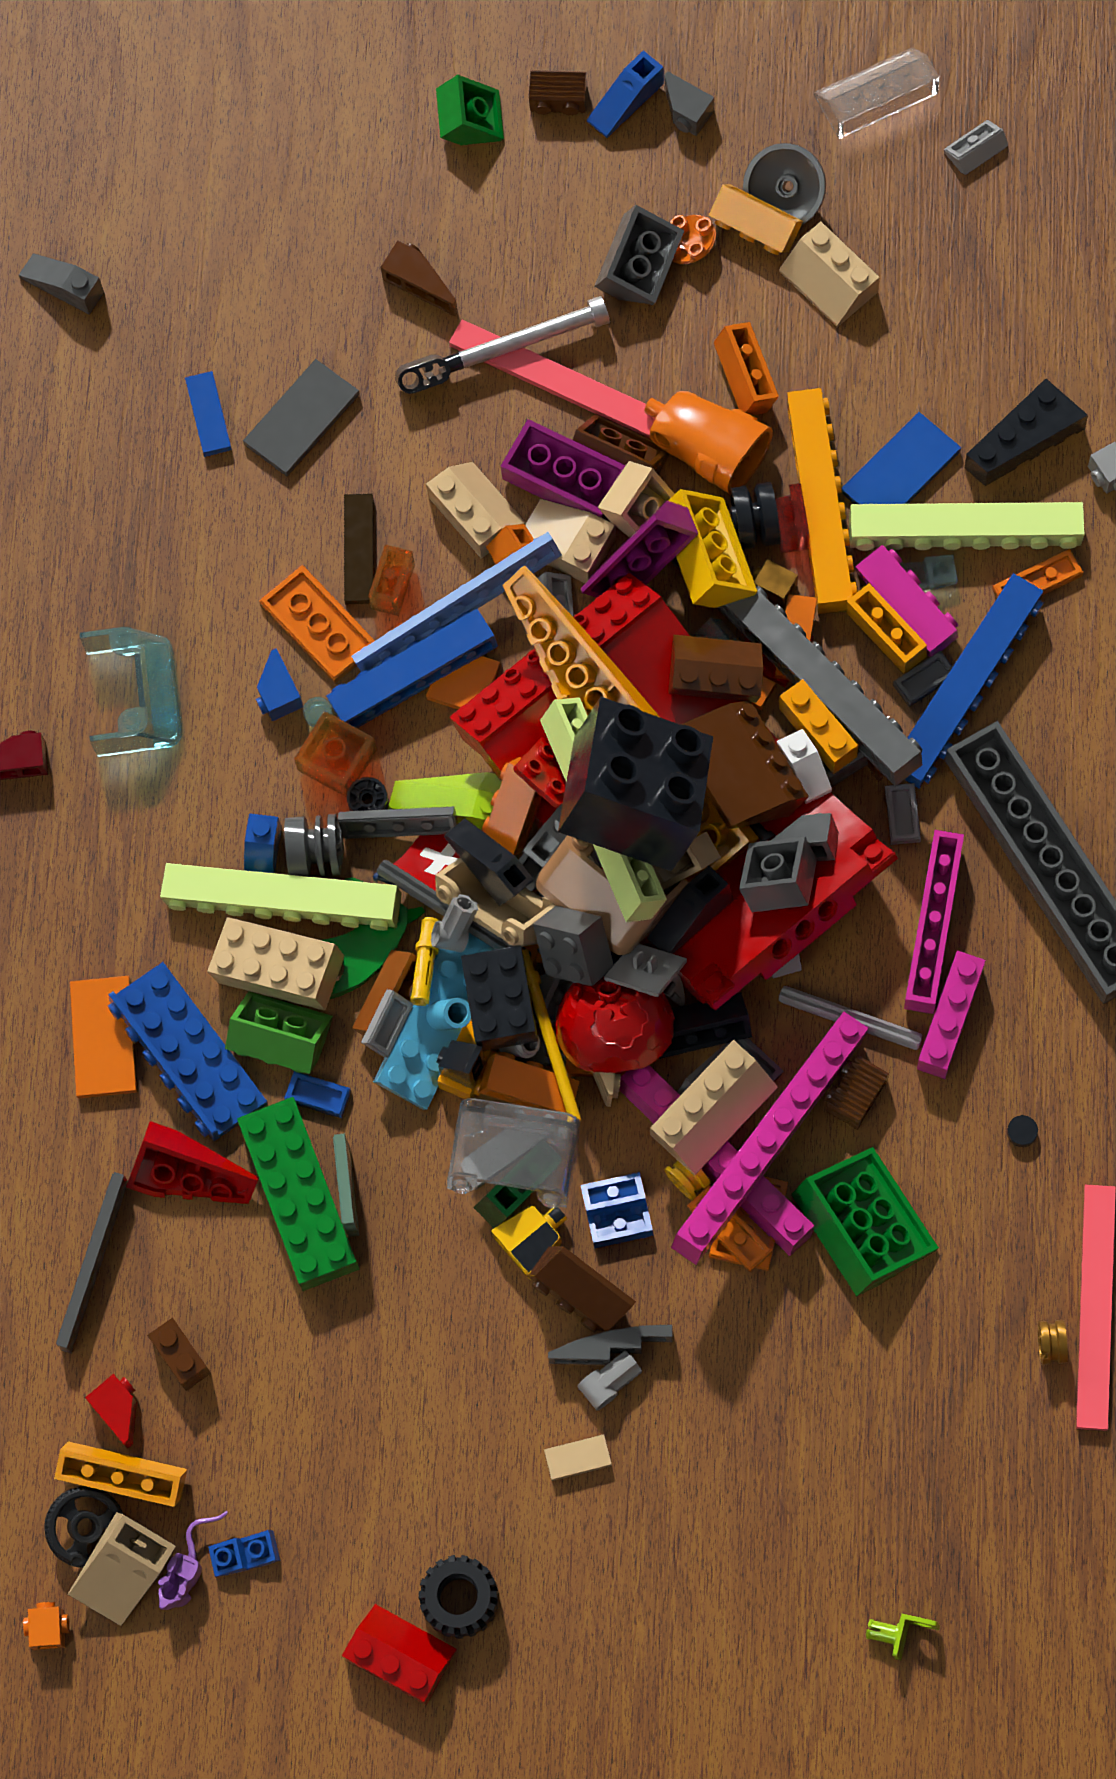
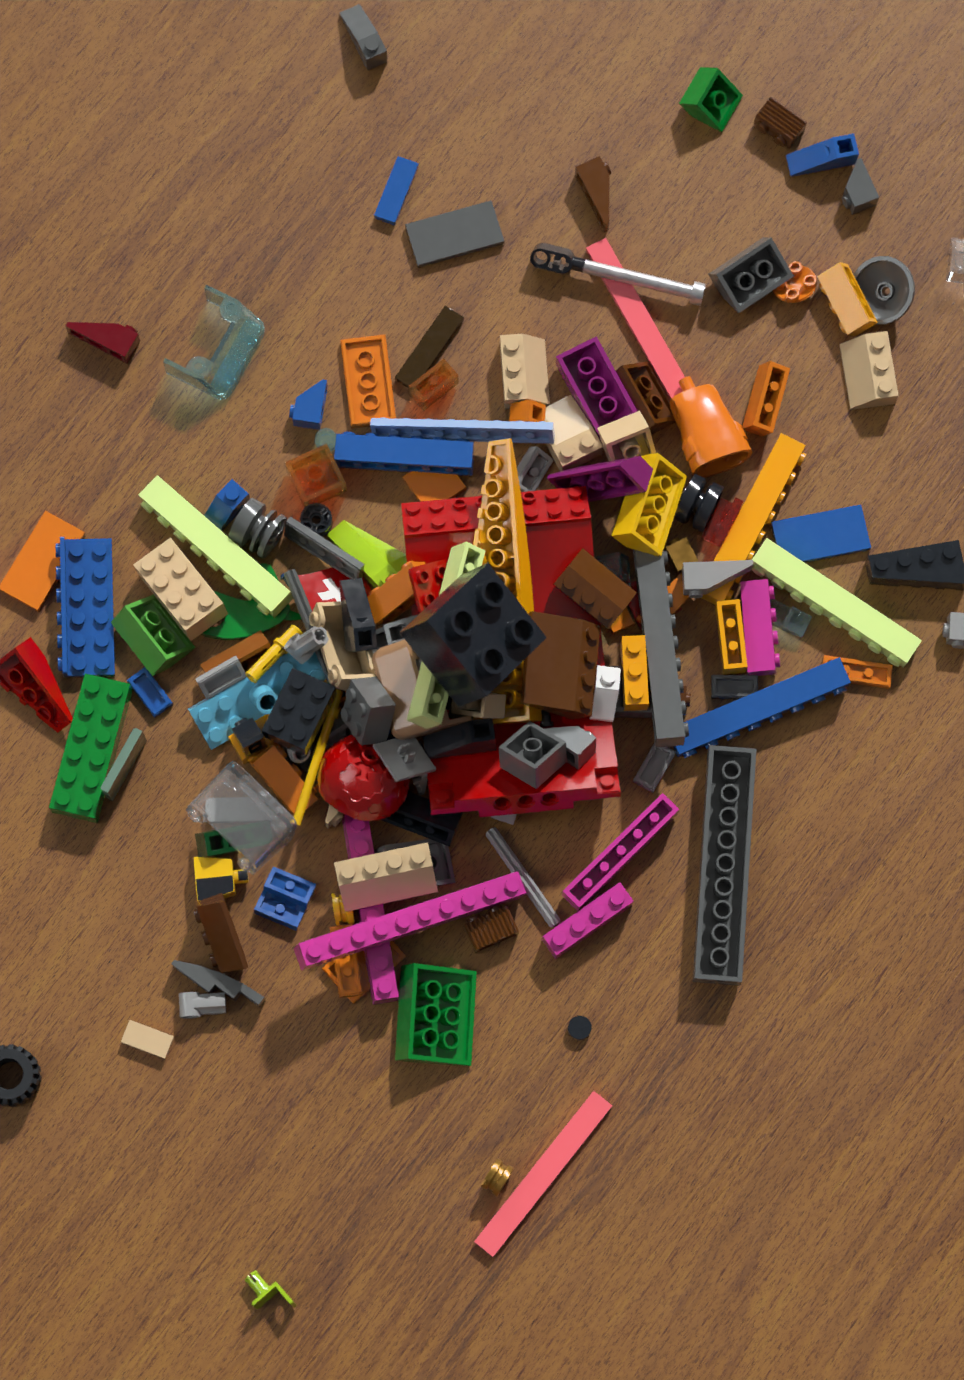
camera: 25 degrees right, 5 degrees up
(817, 584) = (705, 577): none -> light grey slope

